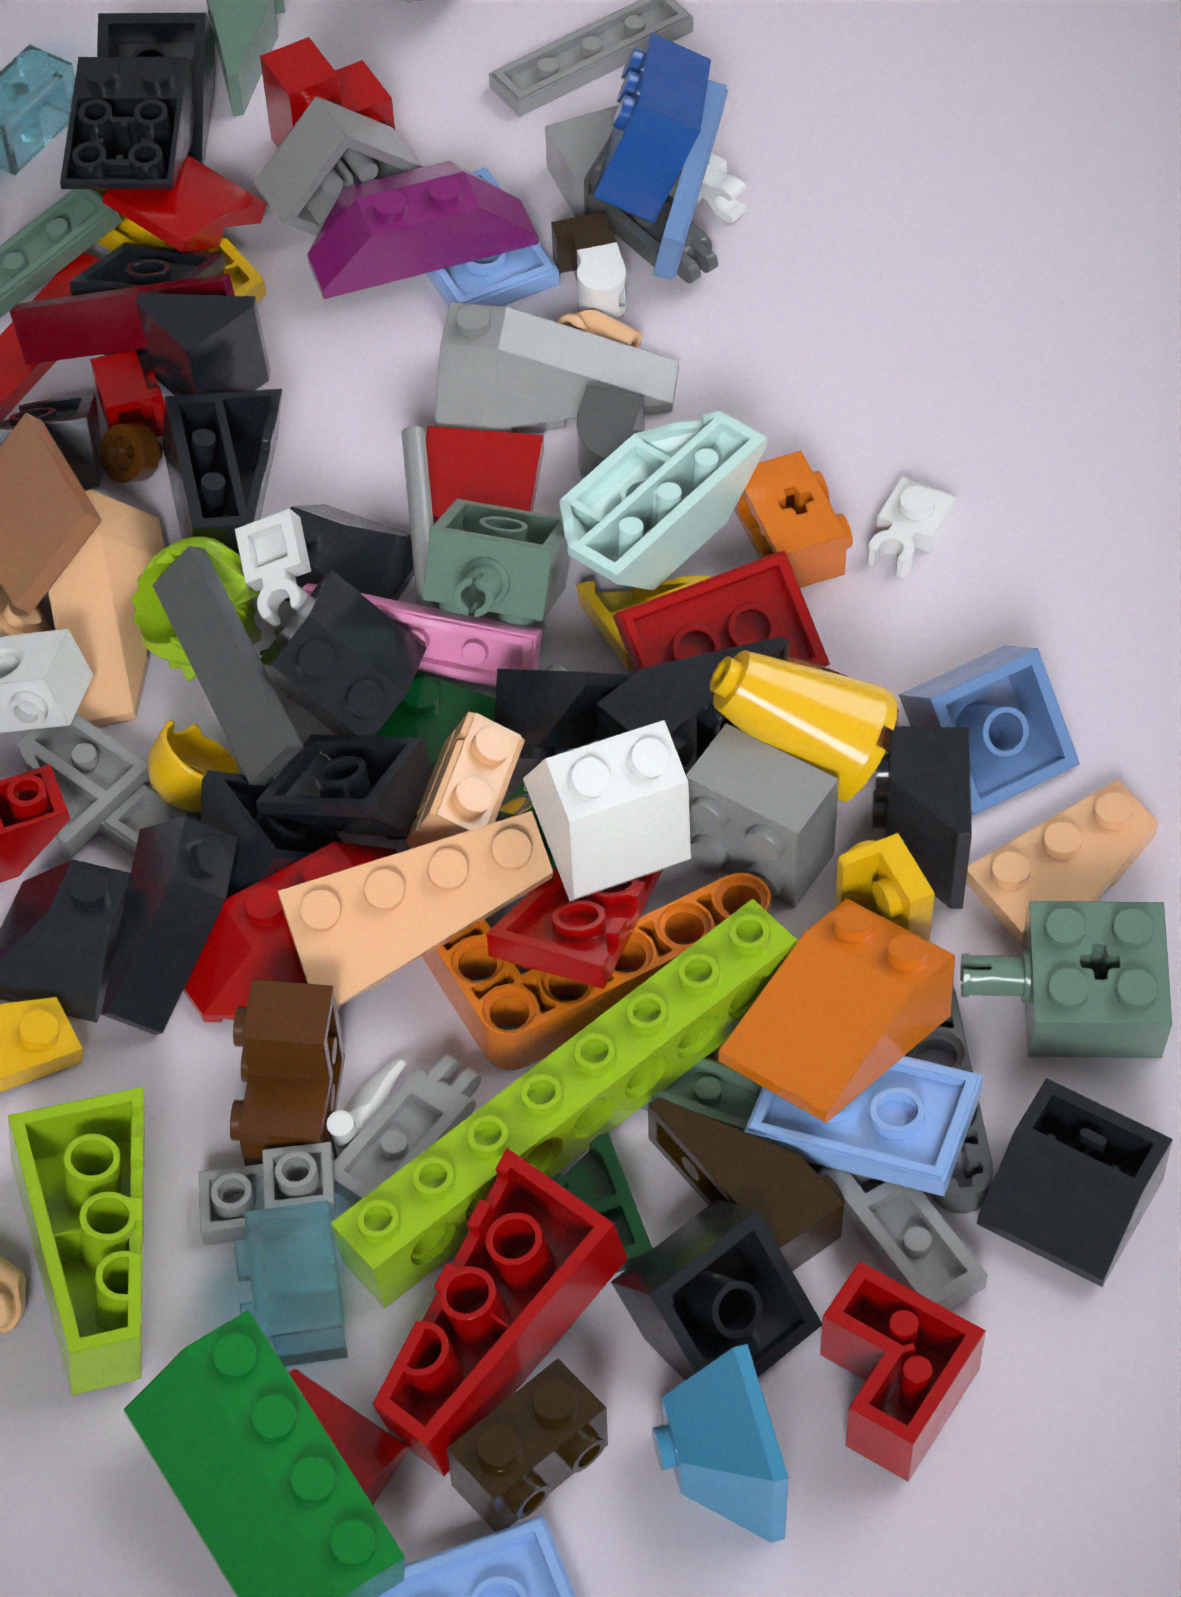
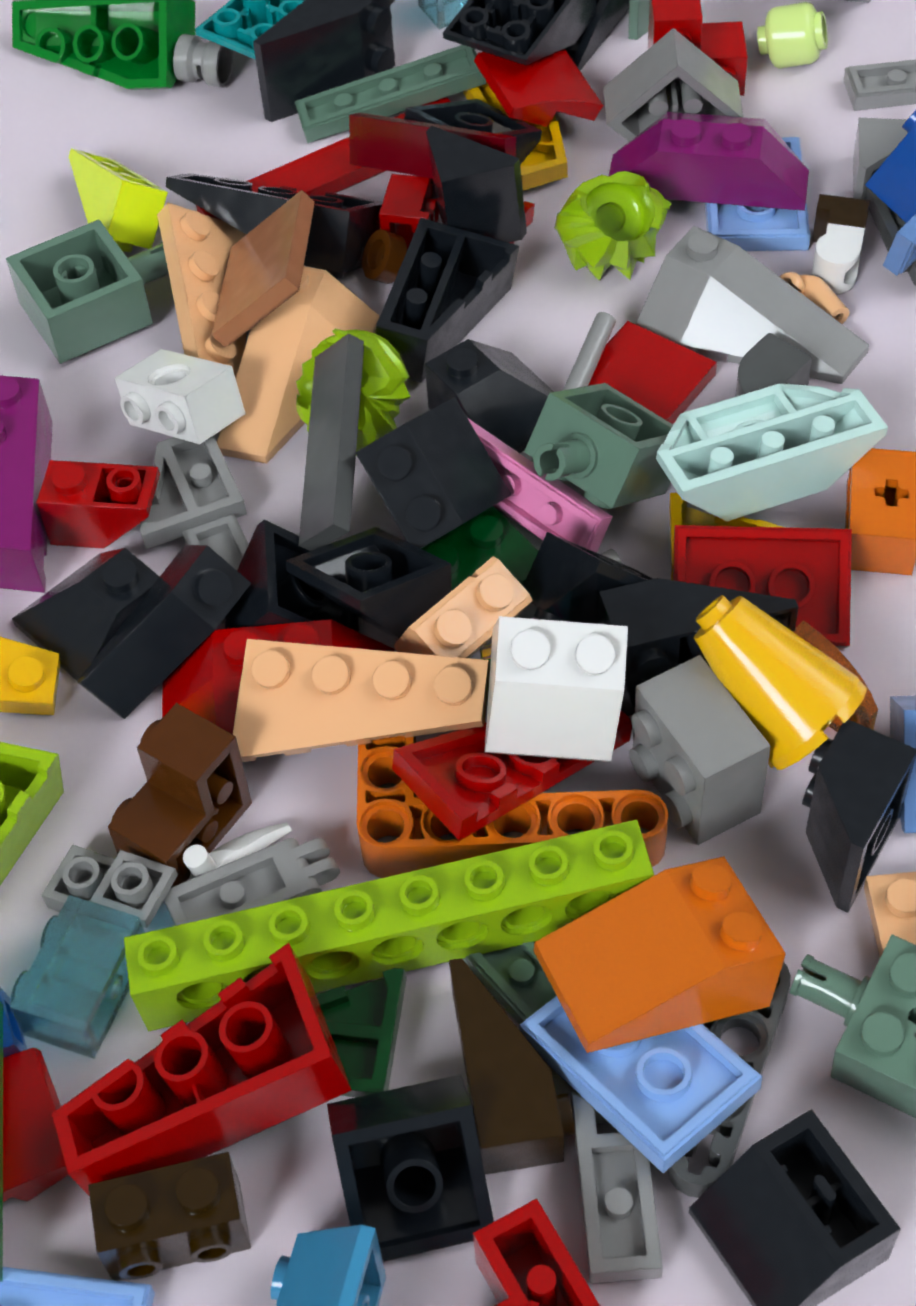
camera: 30 degrees right, 0 degrees up
(180, 763) = (264, 499): yellow hair -> none
(271, 558) = (420, 372): white plate -> none
(357, 328) = (611, 223): none -> lime hair
(416, 55) = (793, 35): none -> yellowish green head
(887, 882) = (765, 861): yellow bracket -> none

